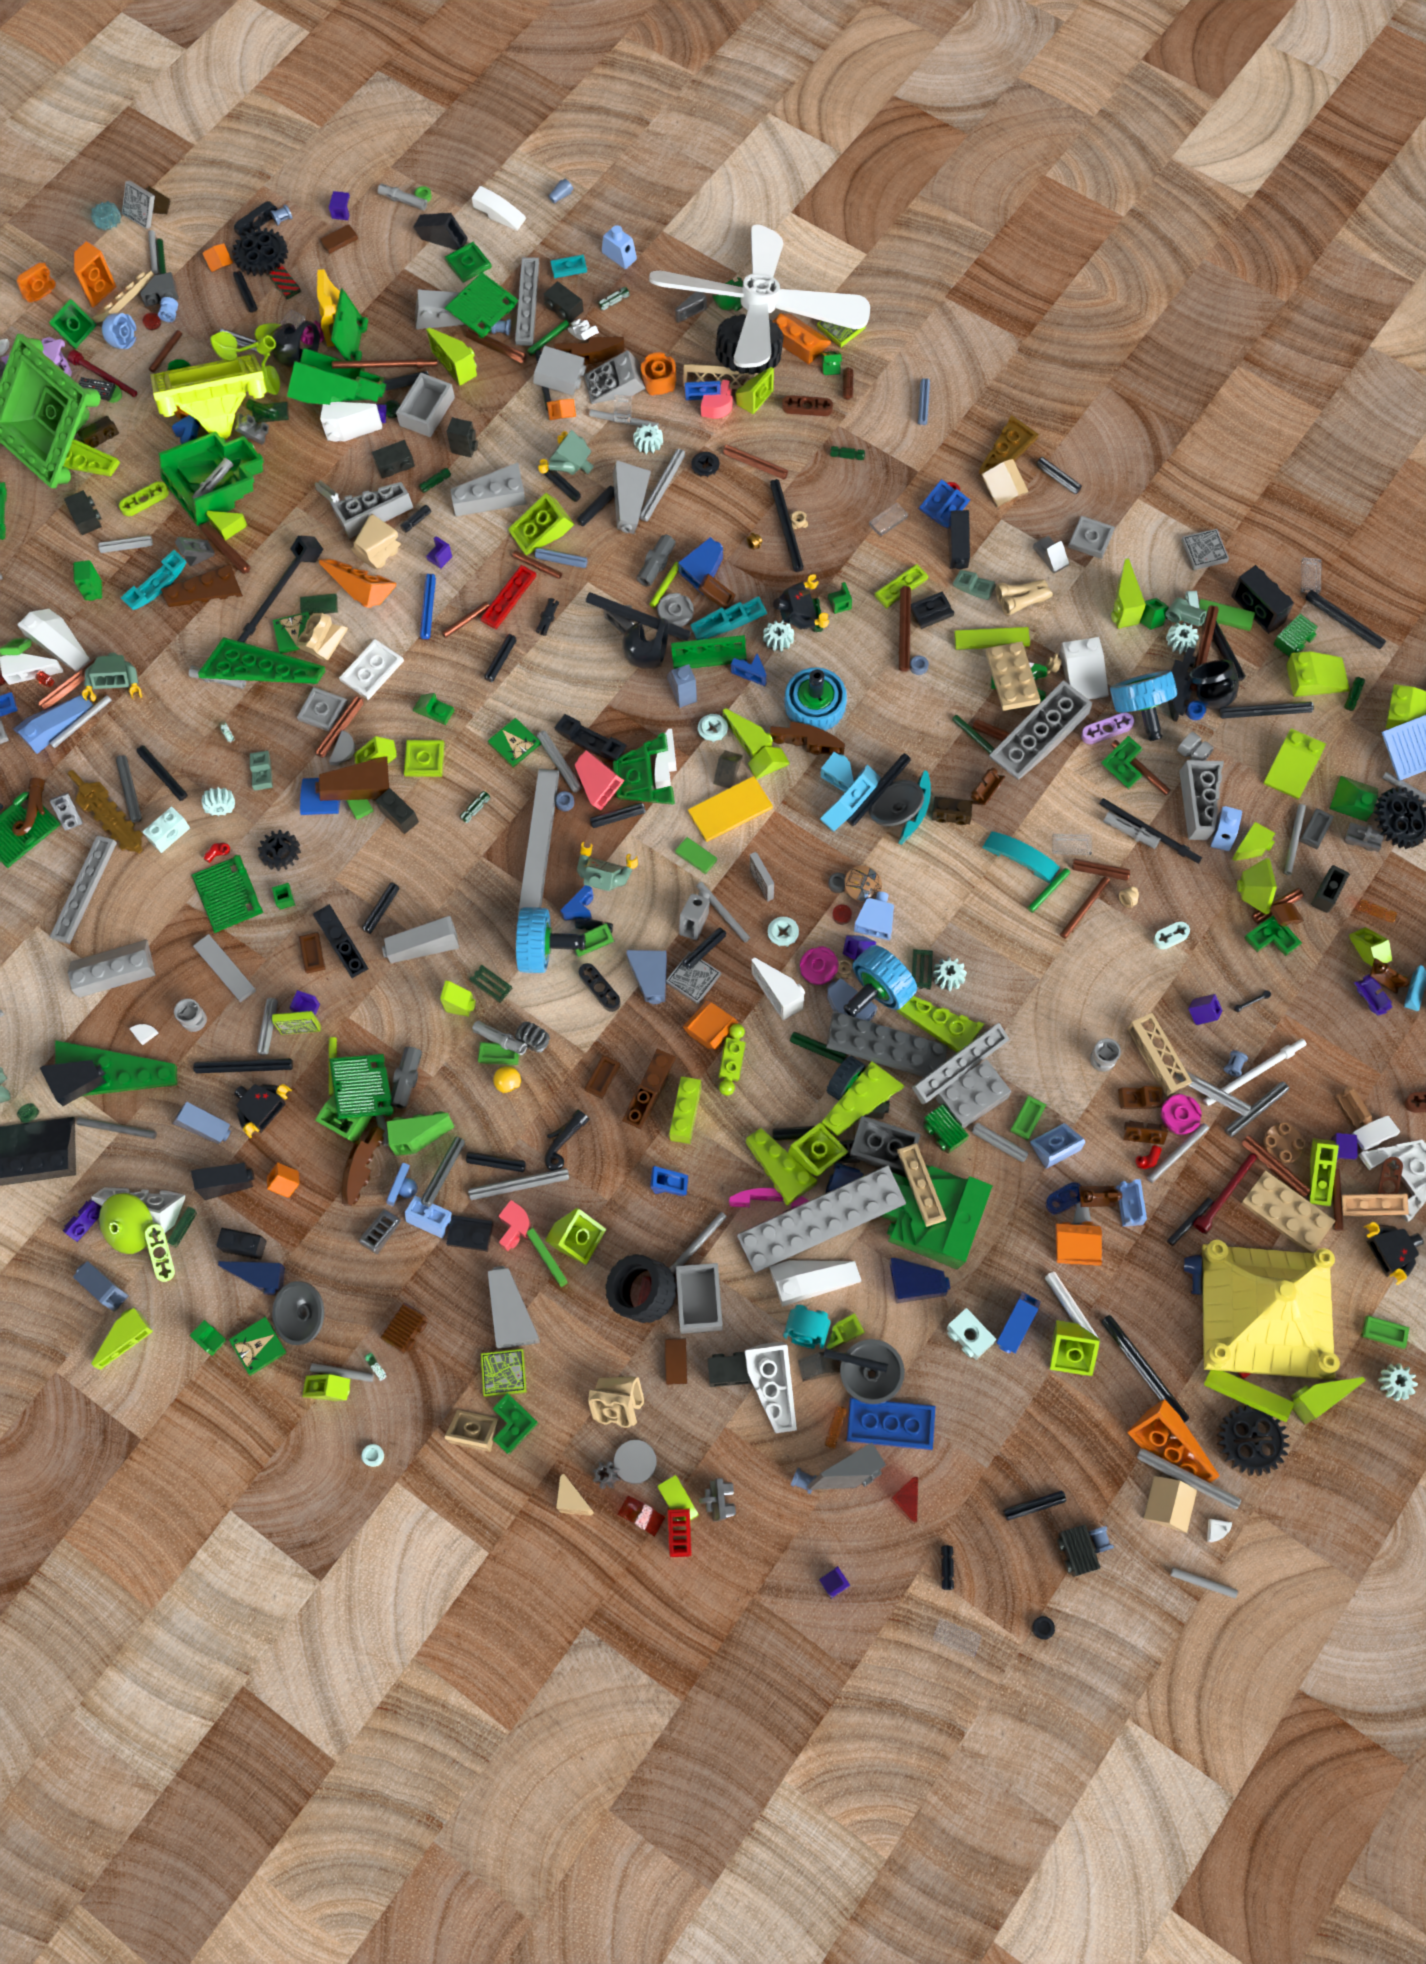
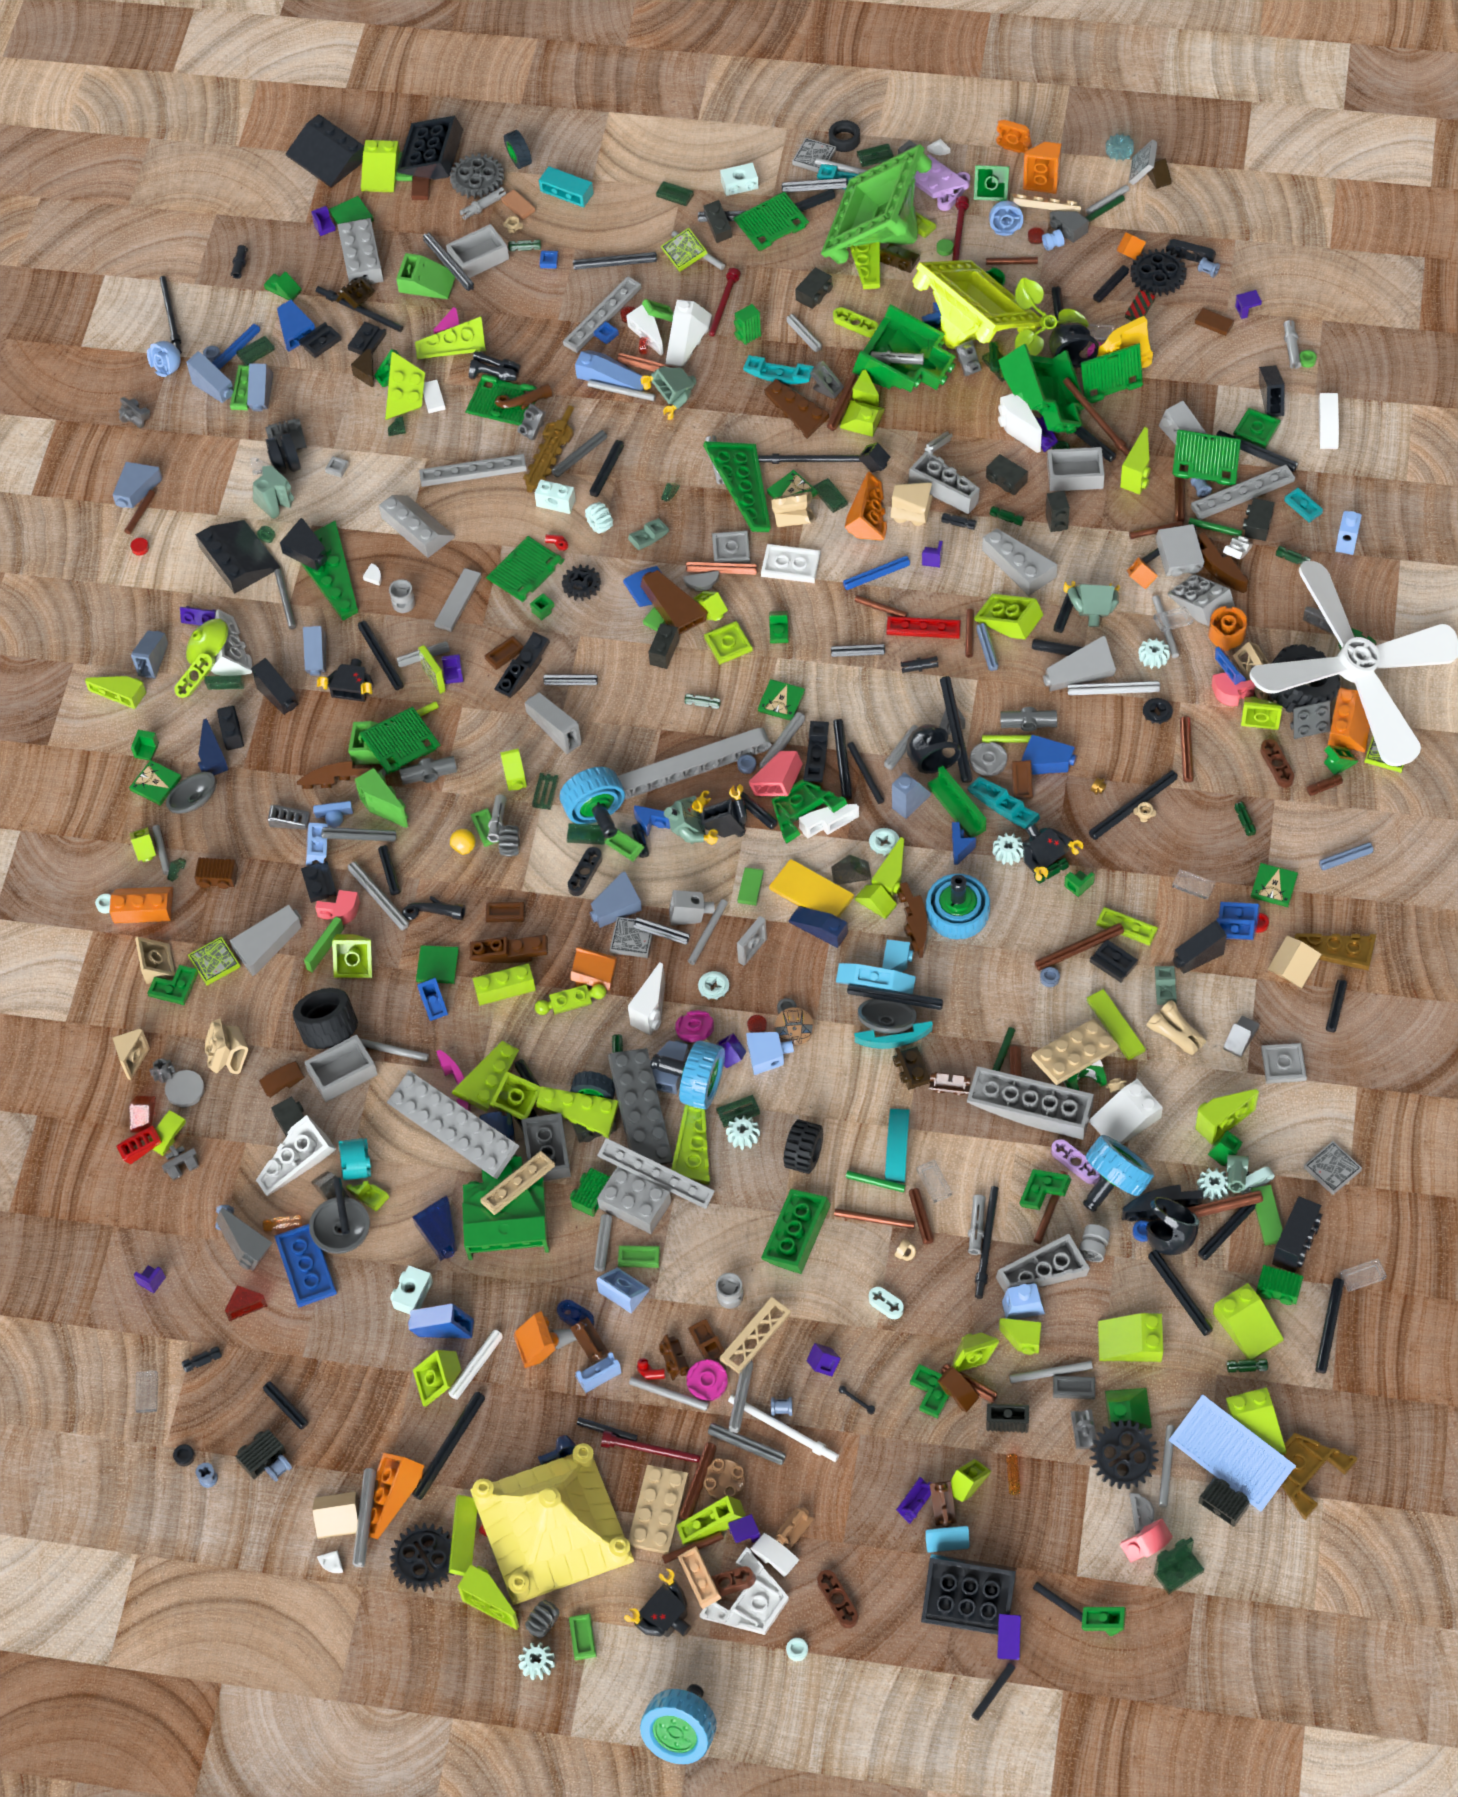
camera: 65 degrees right, 10 degrees down
(20, 572) = (732, 277): none -> dark red piece
(104, 388) = (938, 232): tile -> none
(253, 541) = (862, 418): none -> lime slope
(283, 1180) = (297, 730): orange panel -> none
(396, 1417) = (141, 904): none -> orange slope
(497, 269) = (1262, 452): none -> black axle
(524, 373) = (1153, 530): none -> copper piece
(558, 968) = (585, 834): none -> clear green tile
(561, 191) = (1385, 459): sand blue cone -> none
(607, 722) = (842, 759): none -> black axle
(621, 840) = (725, 817): none -> black torso
(623, 669) = (899, 750): none -> light grey axle
(626, 1162) = (437, 963): none -> green tile
(632, 710) = (865, 772): none -> black bar
(770, 816) = (821, 925): none -> dark blue slope
(786, 360) = (1311, 719): none -> hinge
(806, 1279) = (401, 1145): white wedge -> none
(922, 463) = (1274, 885): none -> green tile
(997, 928) = (803, 1146): none -> black tyre
(1067, 975) = (796, 1230): none -> green slope
(1071, 1613) = (203, 1470): none -> sand blue bush
(1208, 1584) = (279, 1568): light grey bar -> none
(1362, 1358) = (542, 1619): none -> dark grey gear

